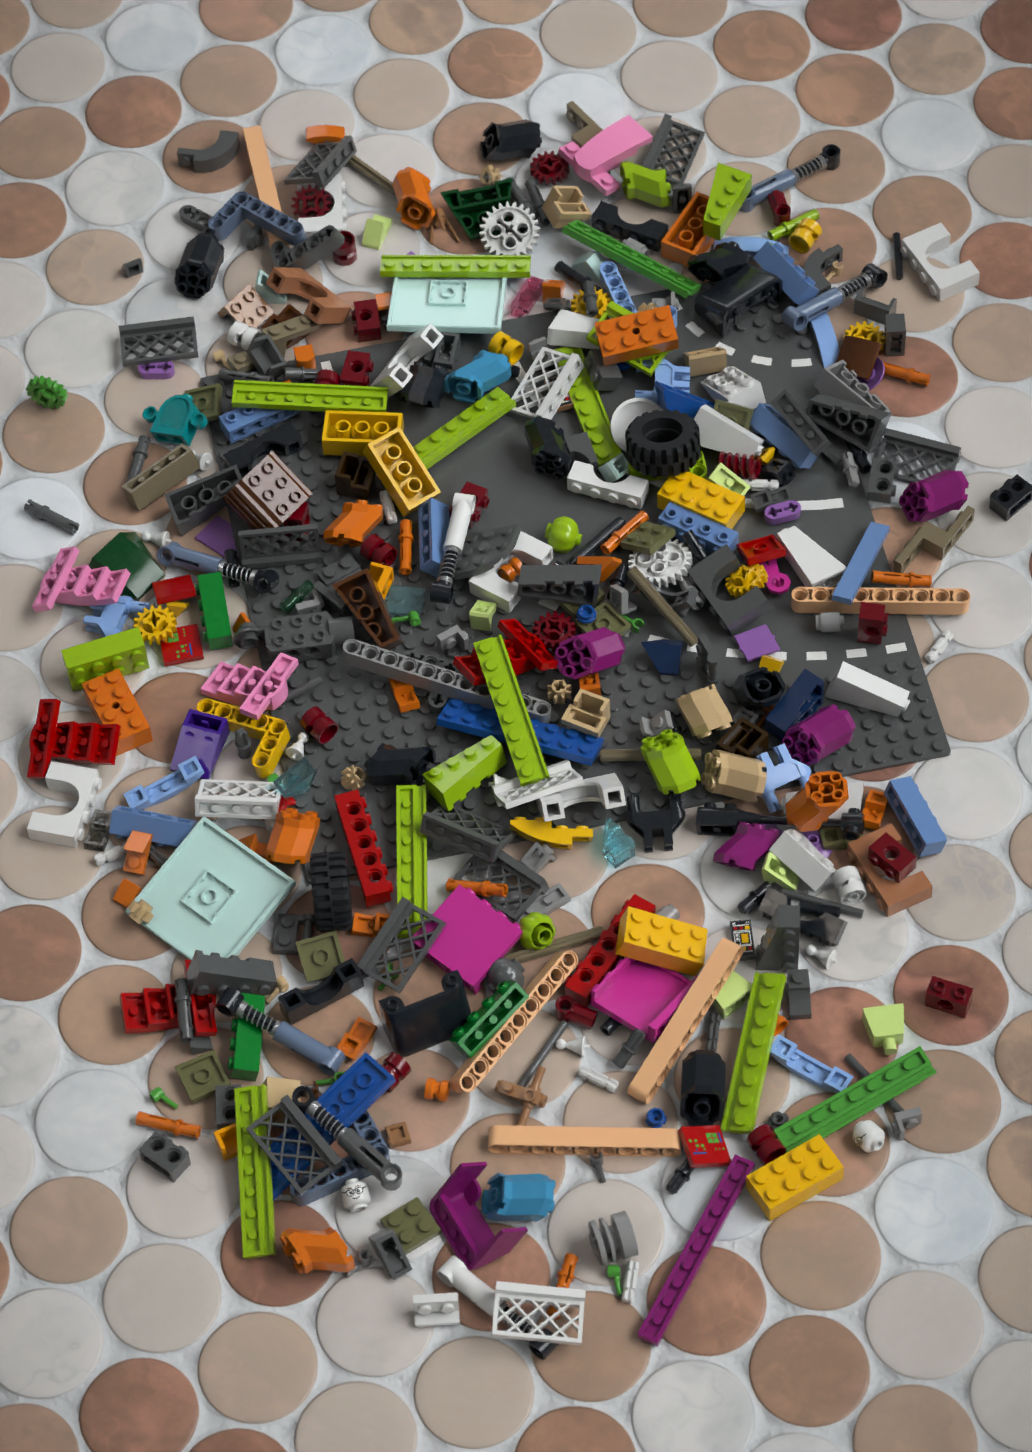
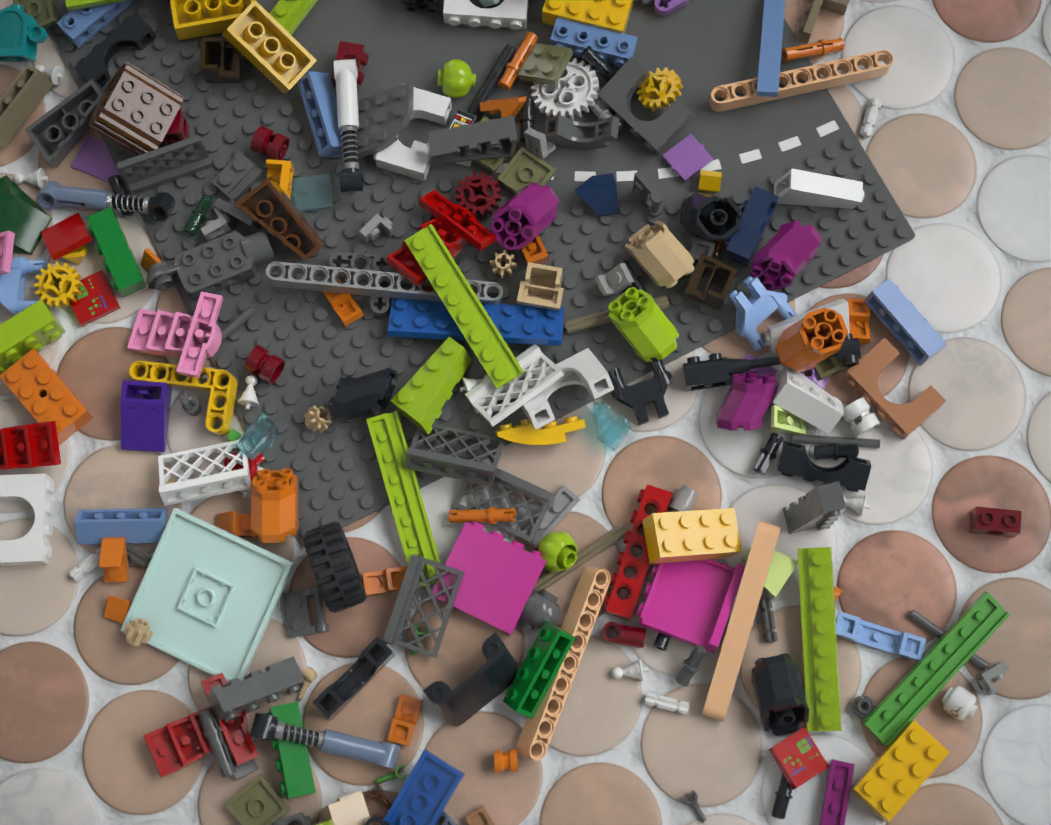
camera: 15 degrees left, 20 degrees up
(99, 831) = (66, 540): clear smoke slope -> none
(166, 787) = (121, 473): light blue slope -> none
(319, 955) = (342, 636): olive plate -> none
(353, 523) = (235, 118): orange brick -> none
(373, 892) = (319, 452): red brick -> none
(388, 507) = (264, 87): white axle -> none
(397, 1067) = (454, 751): dark red wheel -> none
(405, 553) = (294, 122): orange pin -> none
(412, 616) = (326, 210): bright green hand -> none
(482, 614) = (399, 191): yellowish green slope -> none
(510, 570) = (414, 132): orange wheel -> none
(530, 1096) = (603, 746): medium nougat piece -> none
(538, 857) = (534, 461): light grey bracket -> none
(543, 1053) = (601, 690): dark grey bar -> none
(584, 1140) = (673, 781): light nougat beam -> none
(586, 614) = (507, 169): blue plate -> none
(637, 621) = (555, 164): bright green hand -> none
(656, 1113) = (744, 735): blue plate -> none
(662, 606) = (584, 142): dark tan axle -> none
(734, 775) = (713, 323): tan brick -> none
(742, 934) = (767, 503): tile -> none
(761, 550) = (664, 50): red tile -> none
(764, 1143) = (862, 742): dark red wheel -> none
(777, 582) = (691, 81): dark pink piece -> none
(798, 994) = (844, 556): dark grey arch -> none
(810, 560) = (716, 50): white slope -> none
(829, 622) = (756, 117): light grey brick -> none
(872, 623) = (803, 111): dark red brick -> none
(885, 1026) = (941, 571): yellowish green torso -> none
(887, 847) = (912, 381): dark red brick -> none

